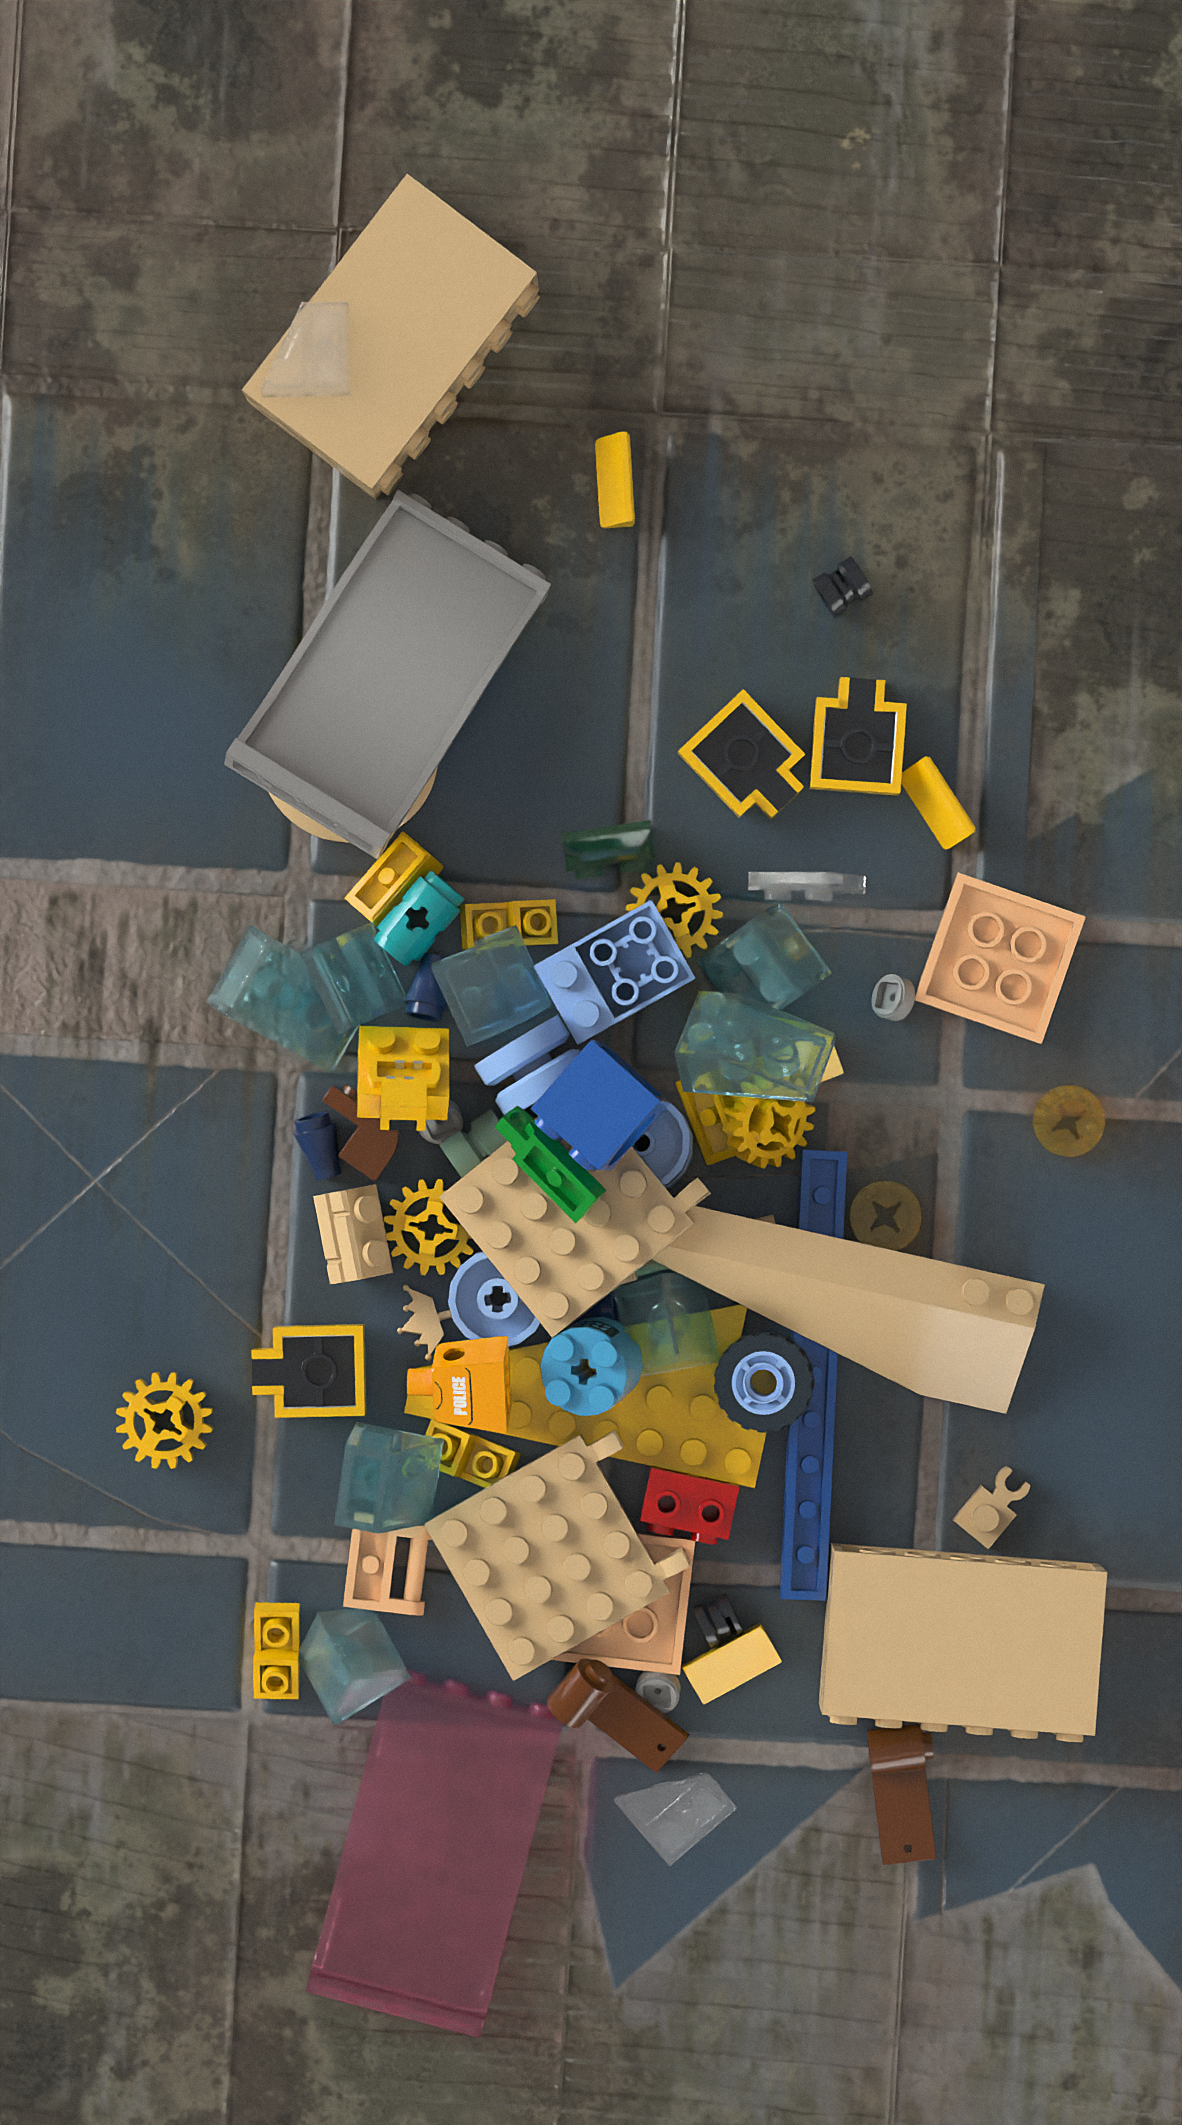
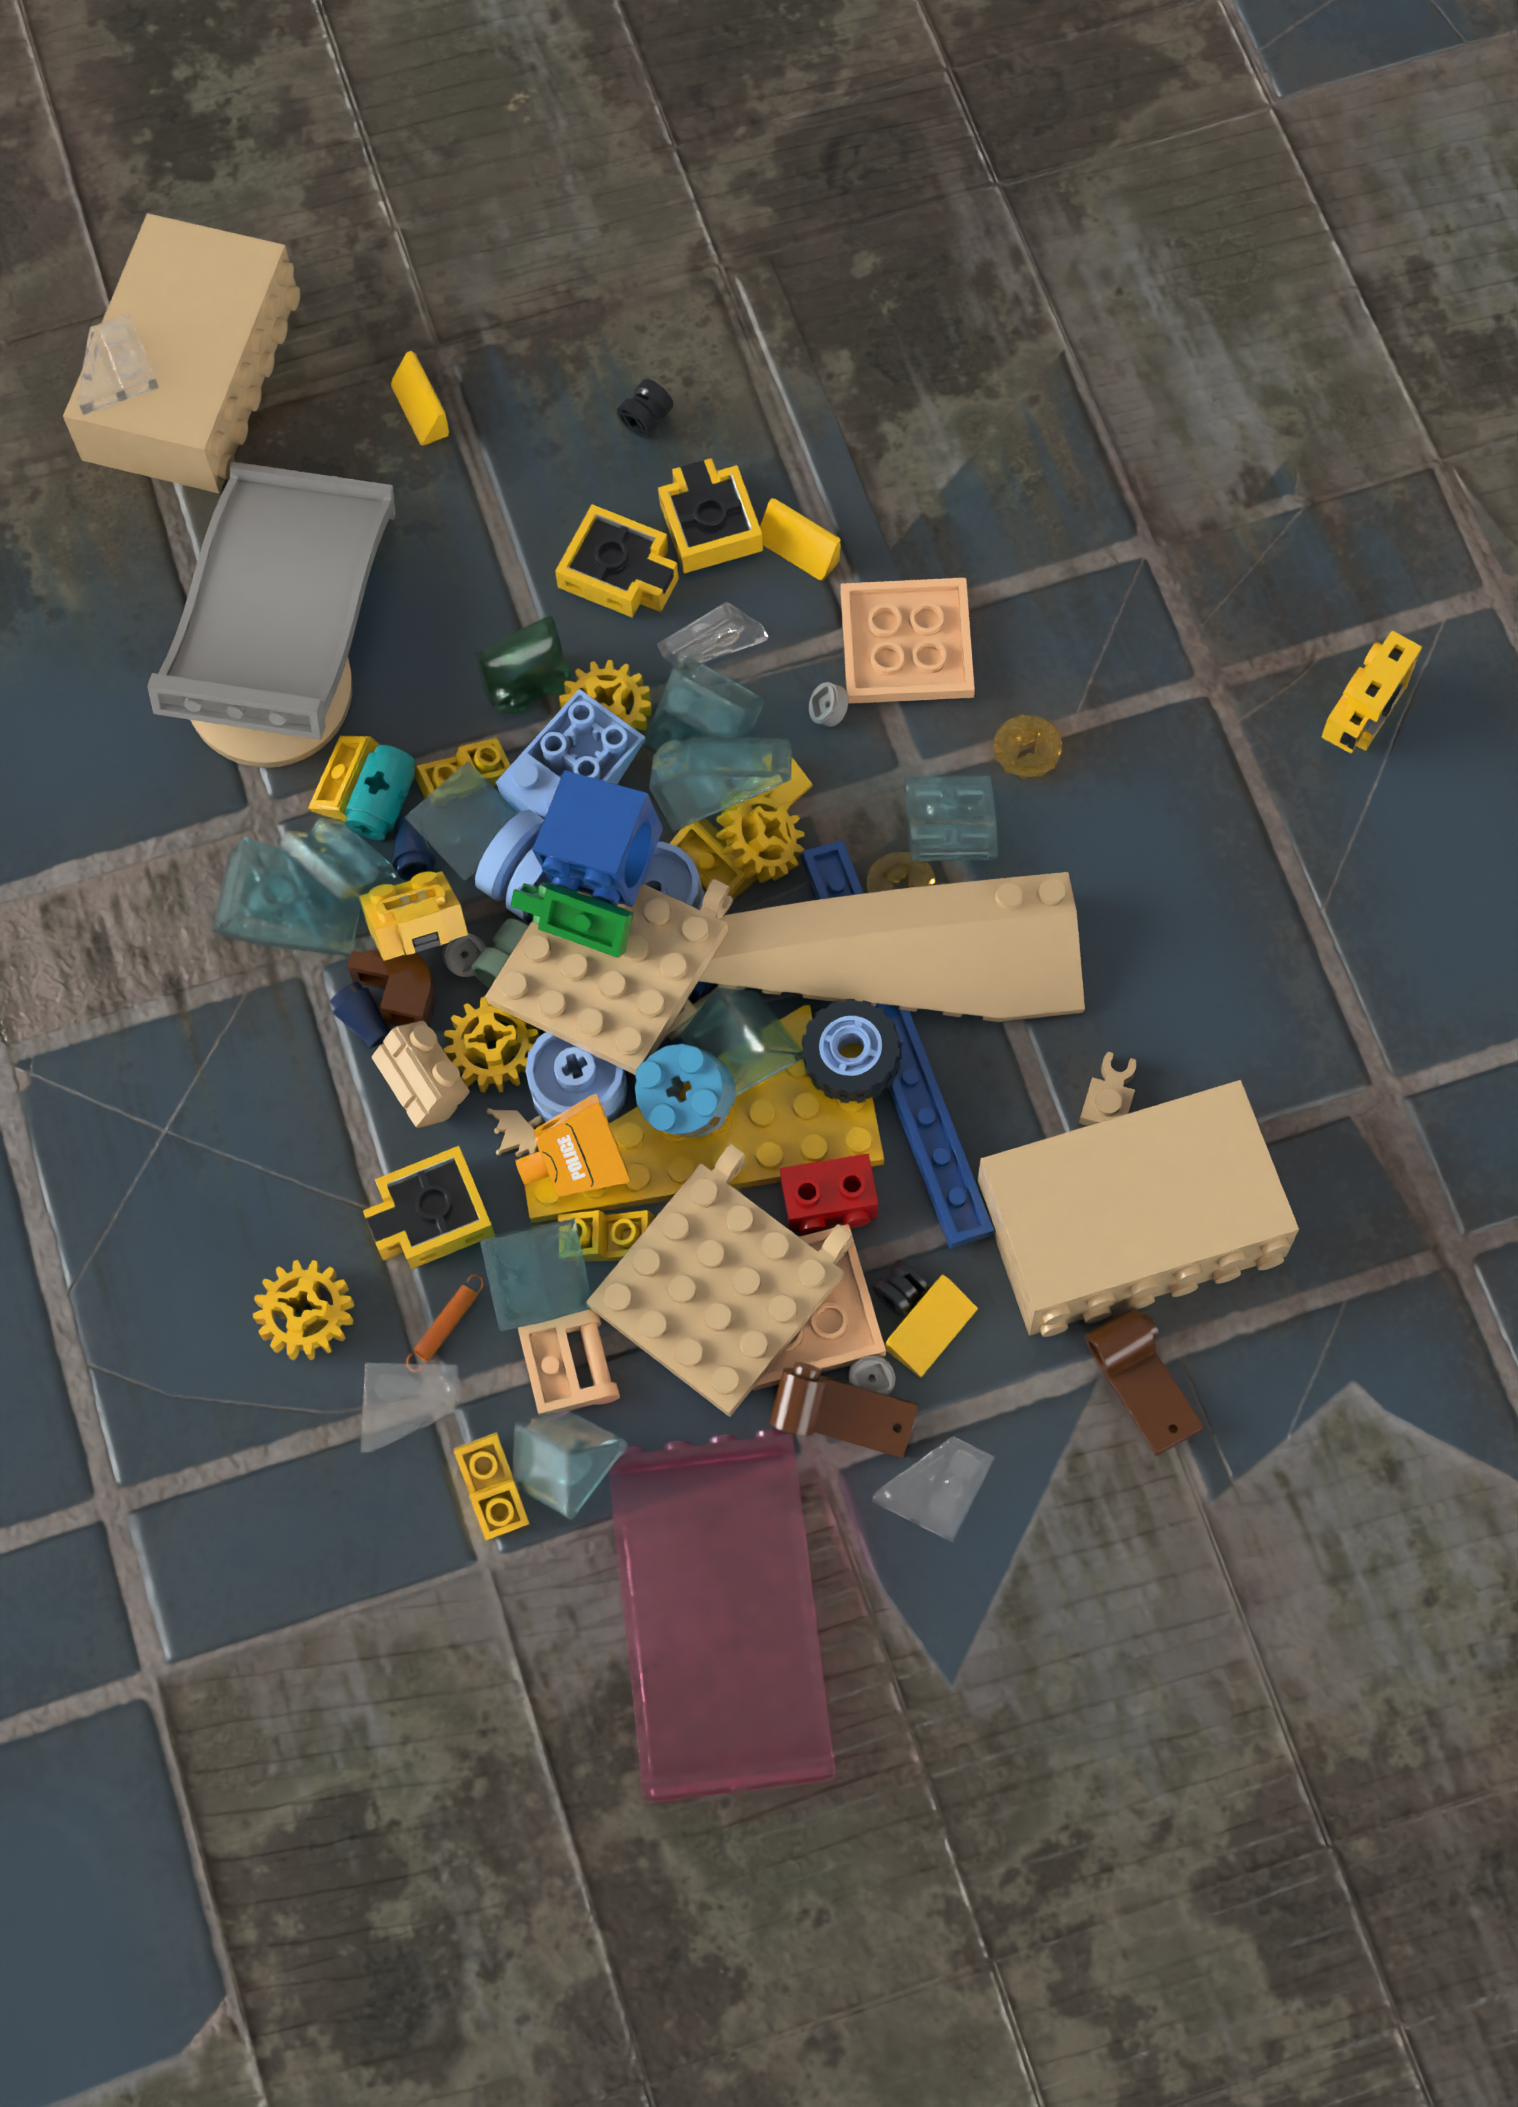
camera: 15 degrees left, 20 degrees down
(228, 1541) = (405, 1400): none -> clear wing
(291, 1479) = (446, 1321): none -> orange piece
(961, 1169) = (951, 818): none -> clear light blue slope

